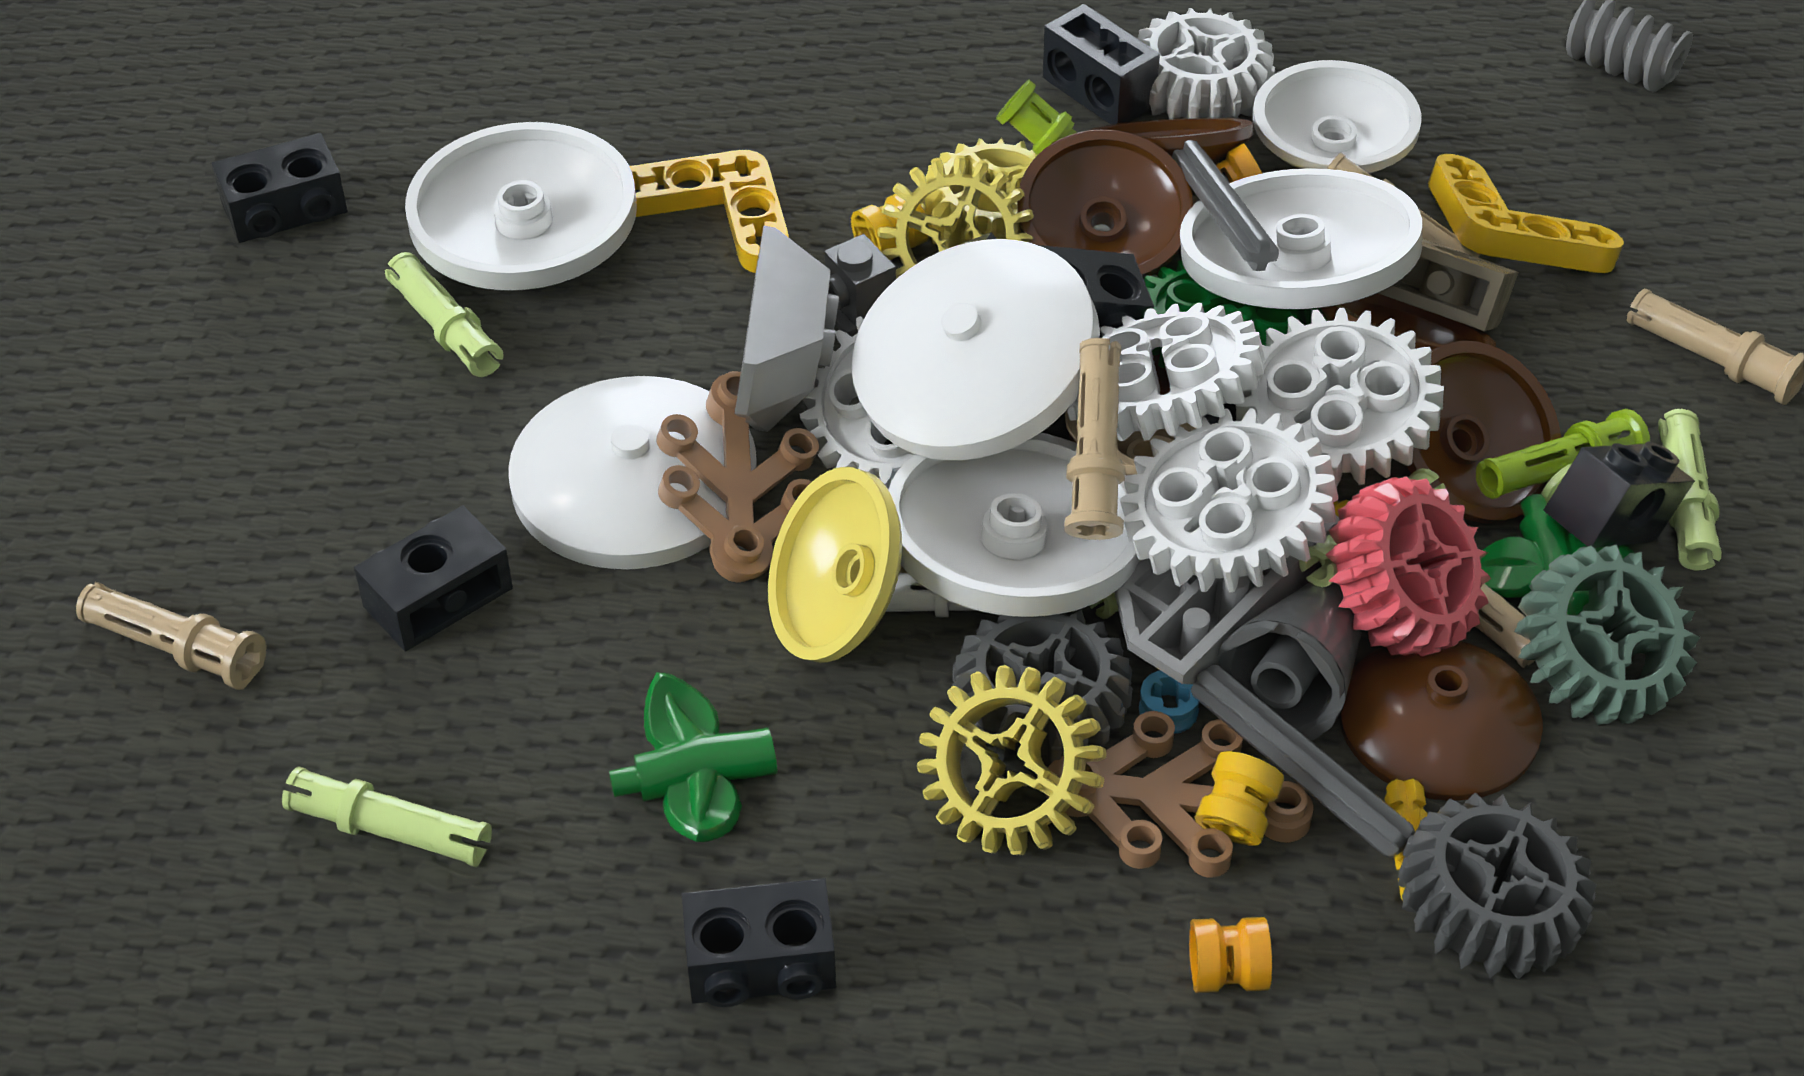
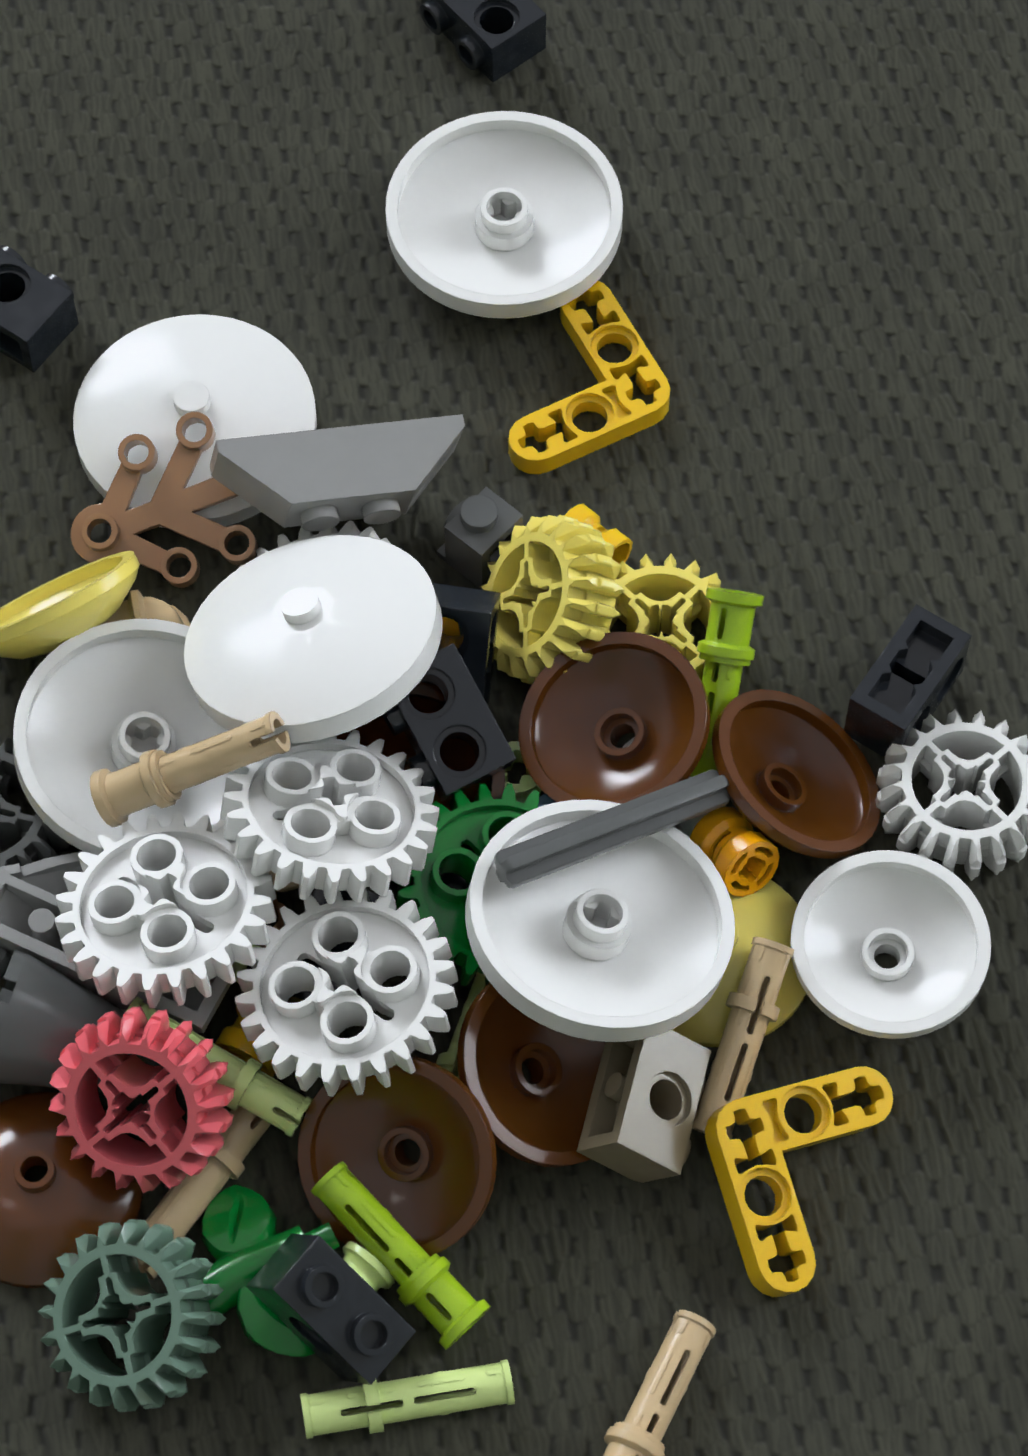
camera: 75 degrees right, 15 degrees up
(452, 325) = (311, 244): yellowish green pin -> none

